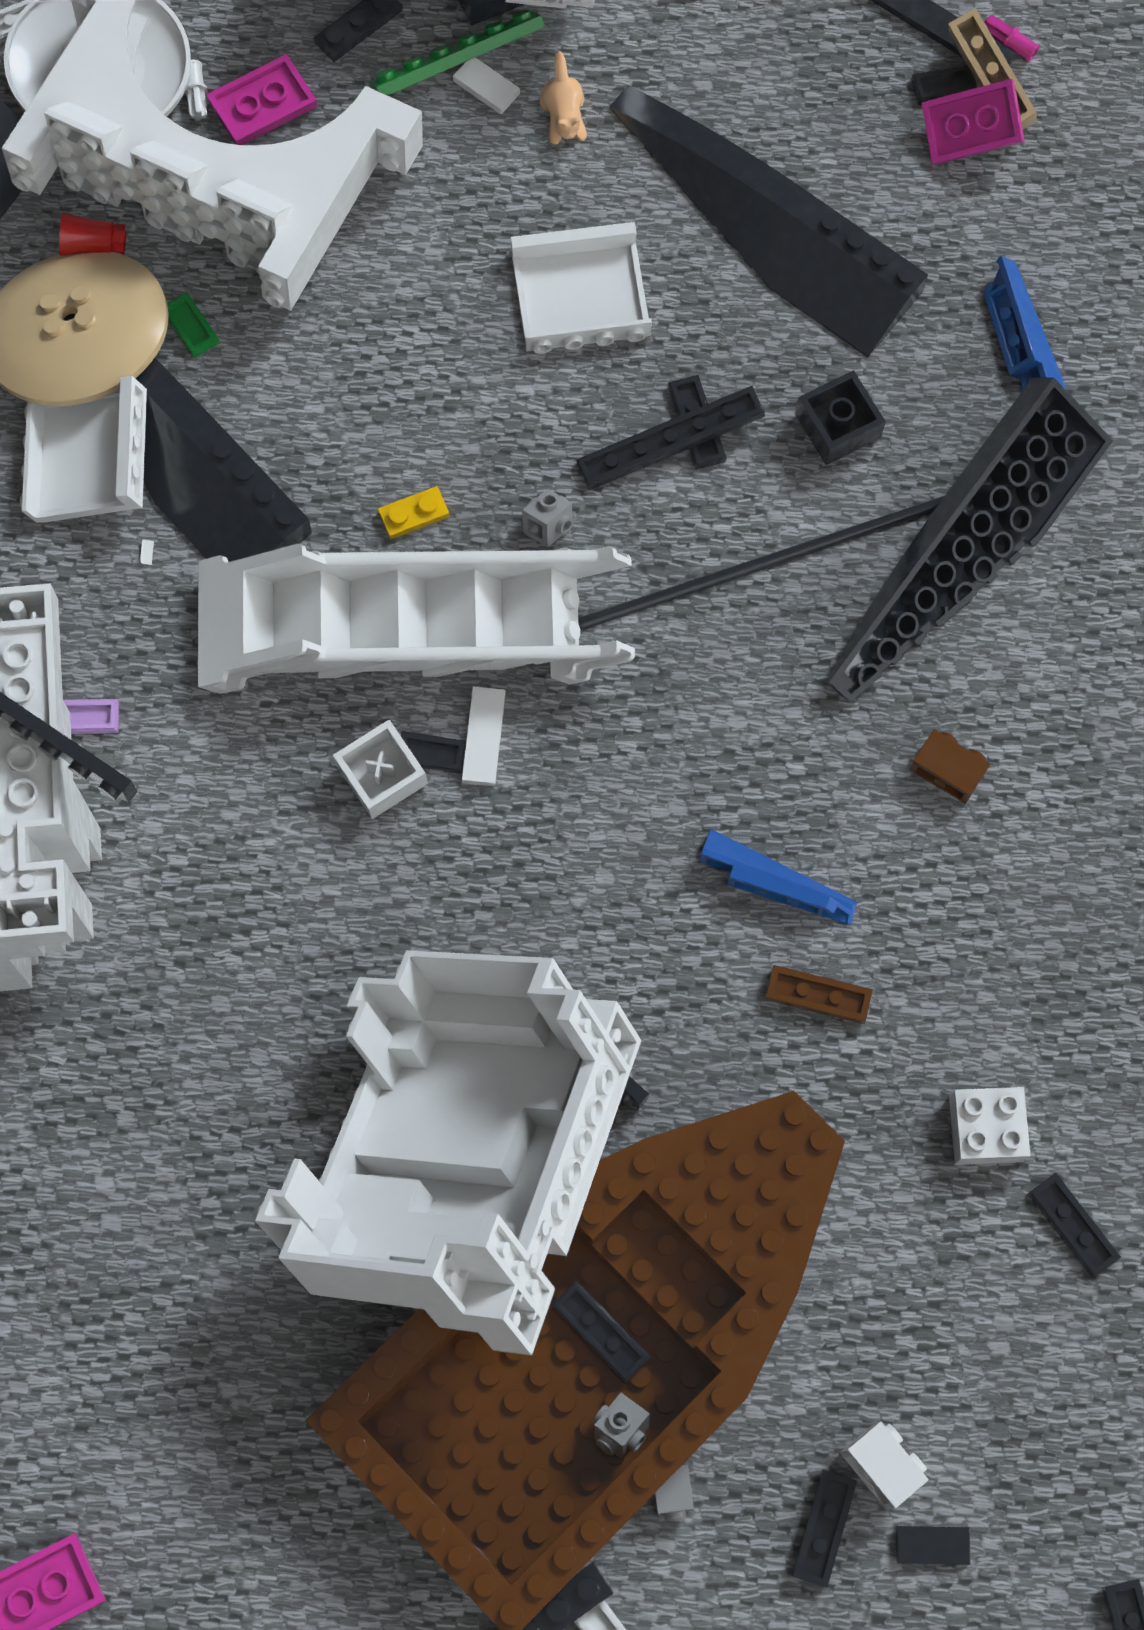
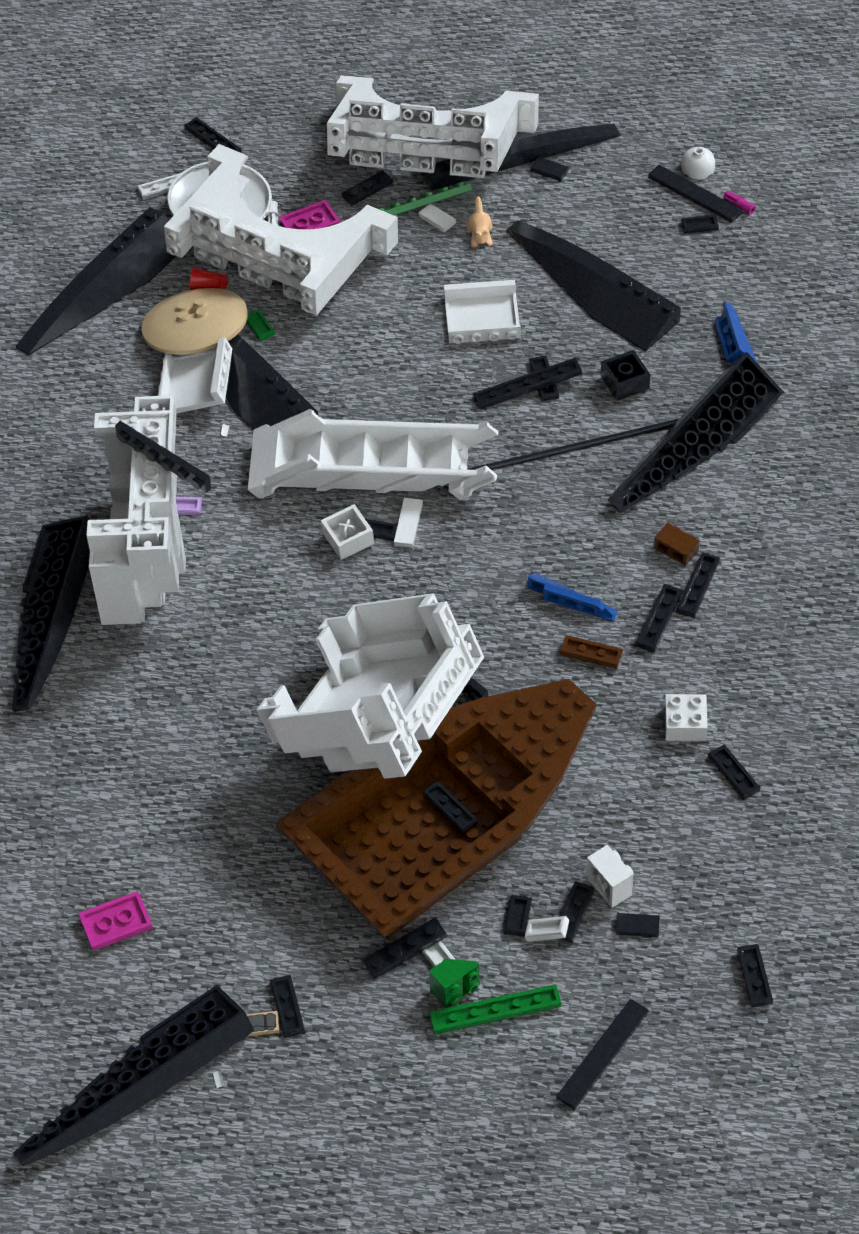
camera: 10 degrees right, 20 degrees down
(413, 512) = (381, 413): yellow plate -> none
(547, 517) = (454, 414): light grey brick -> none
(620, 1427) = (454, 844): light grey brick -> none
(675, 1495) = (485, 887): light grey brick -> none
(730, 1537) = (518, 915): none -> black tile
(782, 1570) = (546, 928): none -> white tile
(929, 918) = (659, 618): none -> black plate
(973, 122) = (712, 237): dark pink plate -> none
(986, 59) = (725, 215): tan brick -> none
(990, 845) = (698, 585): none -> black tile

